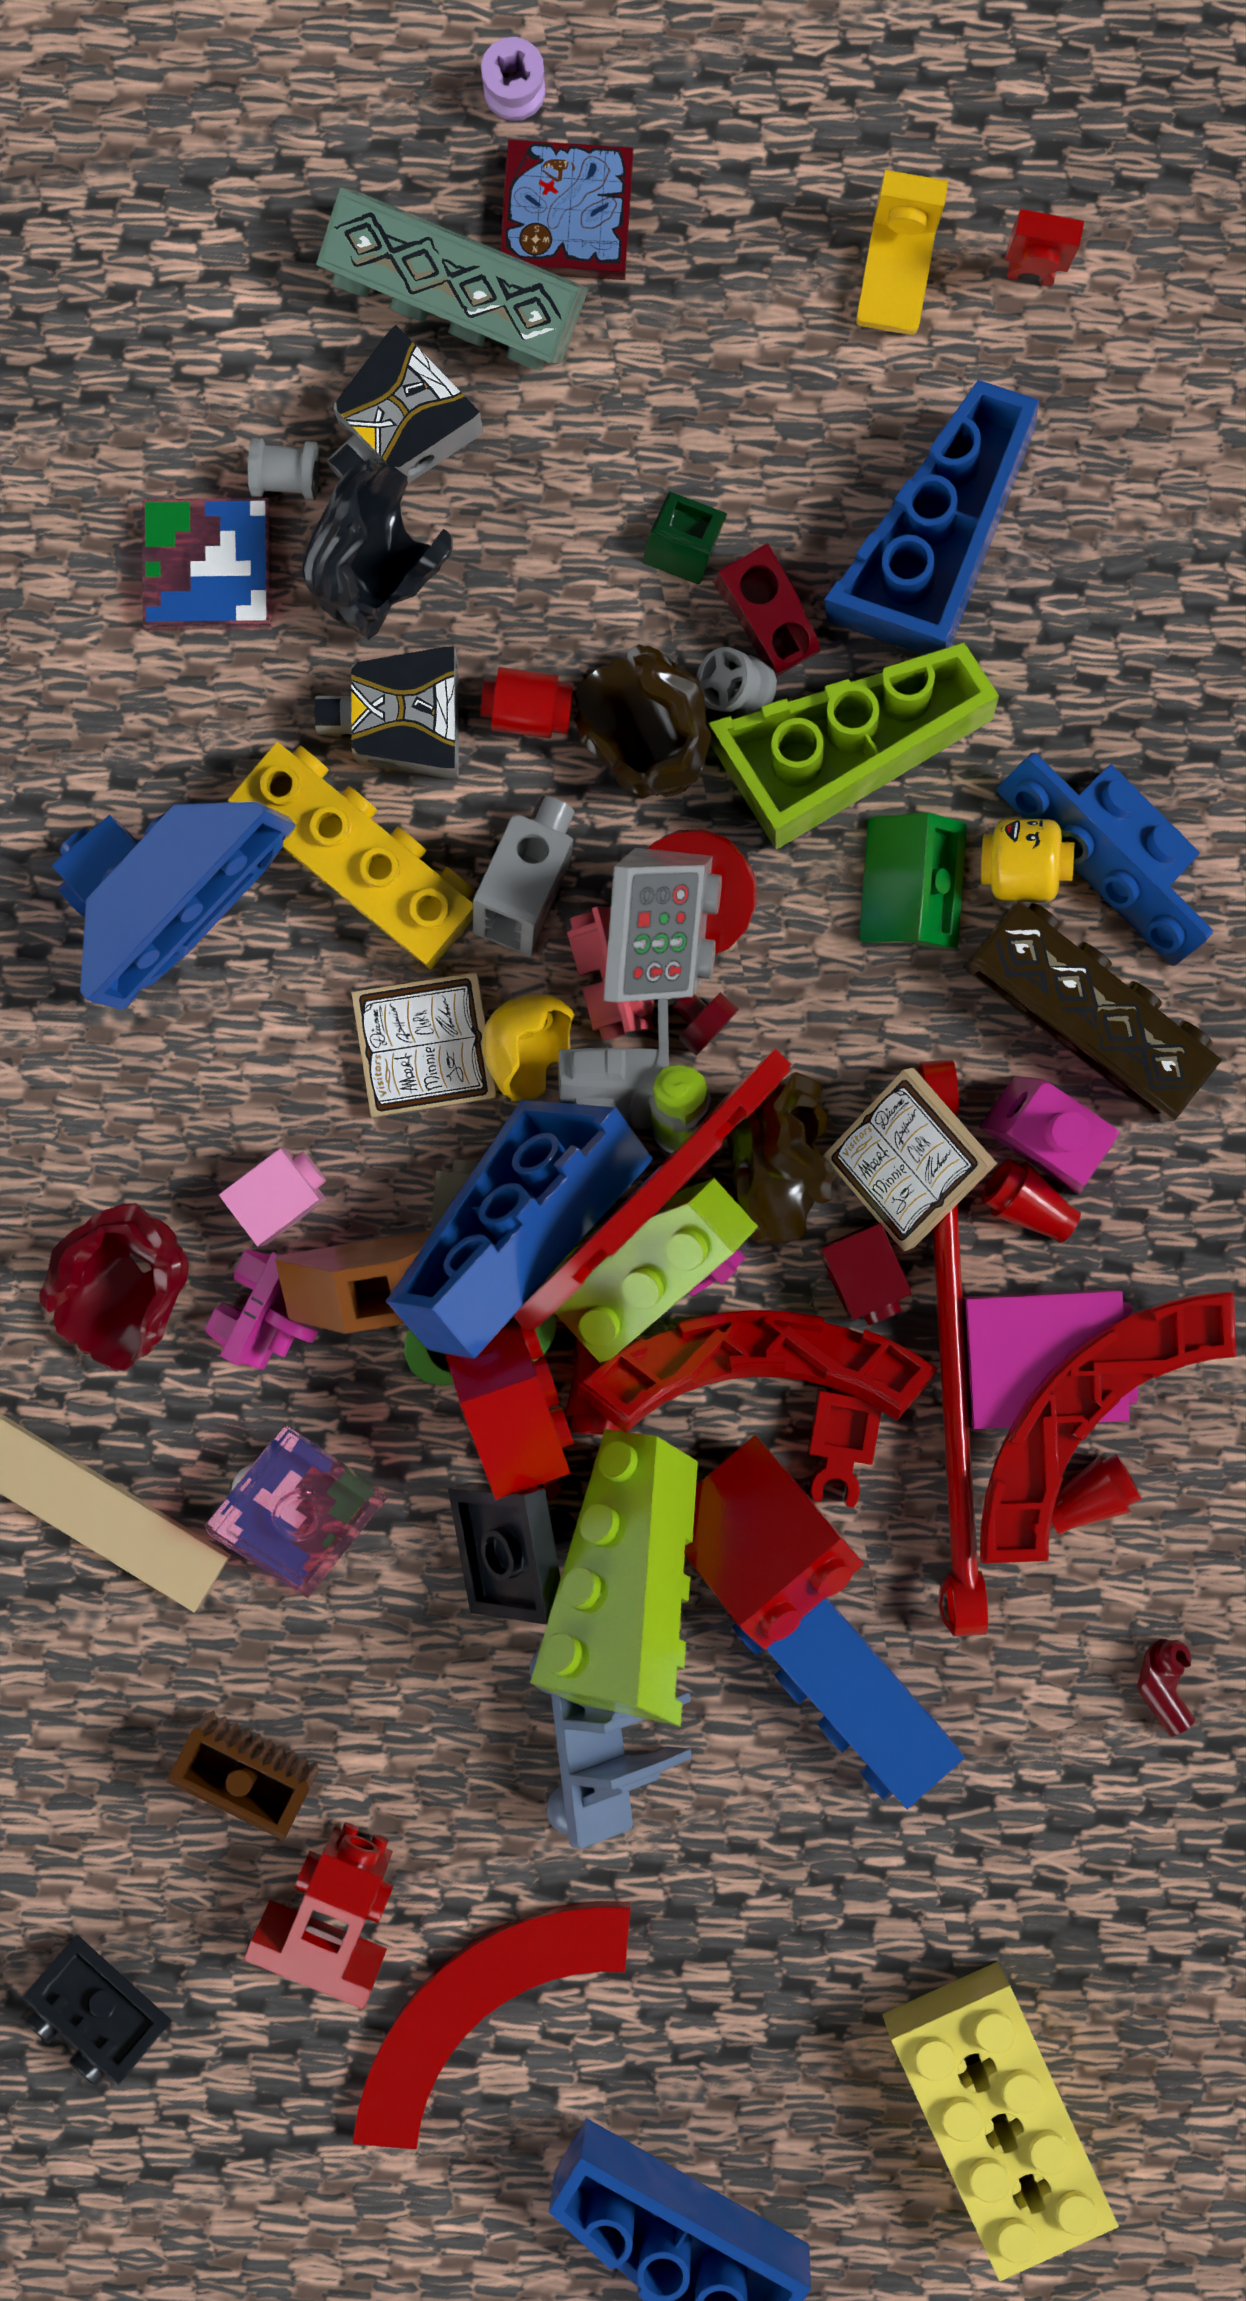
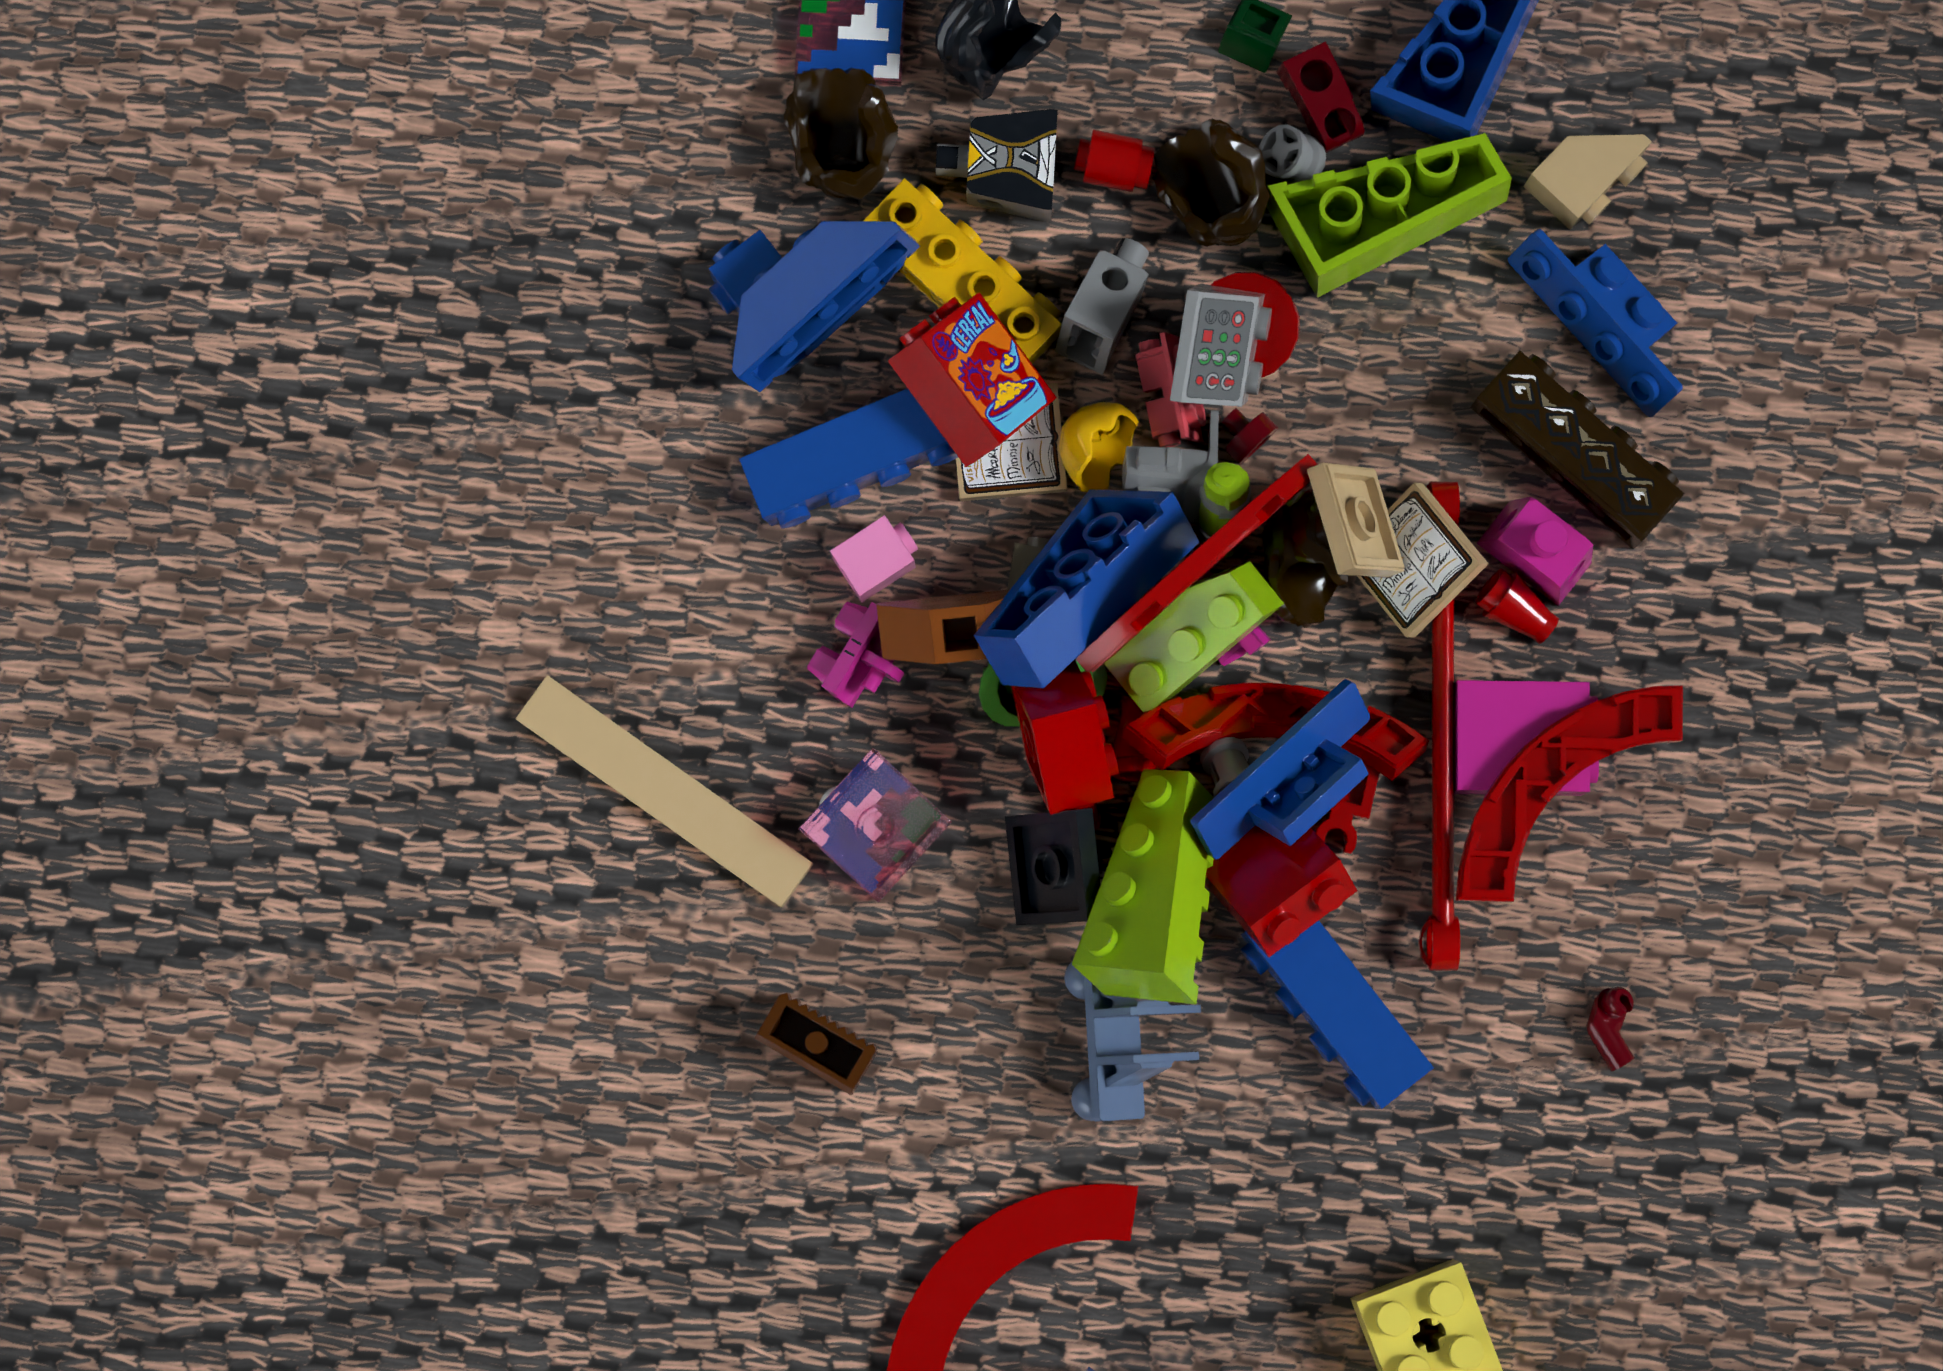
camera: 10 degrees right, 5 degrees down
(93, 2013) = (669, 1245): black bracket -> none
(102, 1293) = (721, 634): dark red hair -> none
(195, 670) = (844, 117): none -> dark brown hair
(242, 1073) = (842, 458): none -> blue brick
(344, 1886) = (900, 1136): red tile -> none
(367, 981) = (970, 377): none -> brick
(708, 1426) = (1224, 761): none -> light grey bush
(781, 1439) = (1292, 779): none -> blue bracket
(836, 1123) = (1356, 520): none -> tan tile
(866, 1274) = (1372, 656): dark red brick -> none
(913, 880) = (1432, 330): green panel -> none
(1026, 860) = (1528, 318): yellow head -> none
(1080, 678) = (1582, 171): none -> tan slope
(1094, 1495) = (1557, 859): red cone -> none

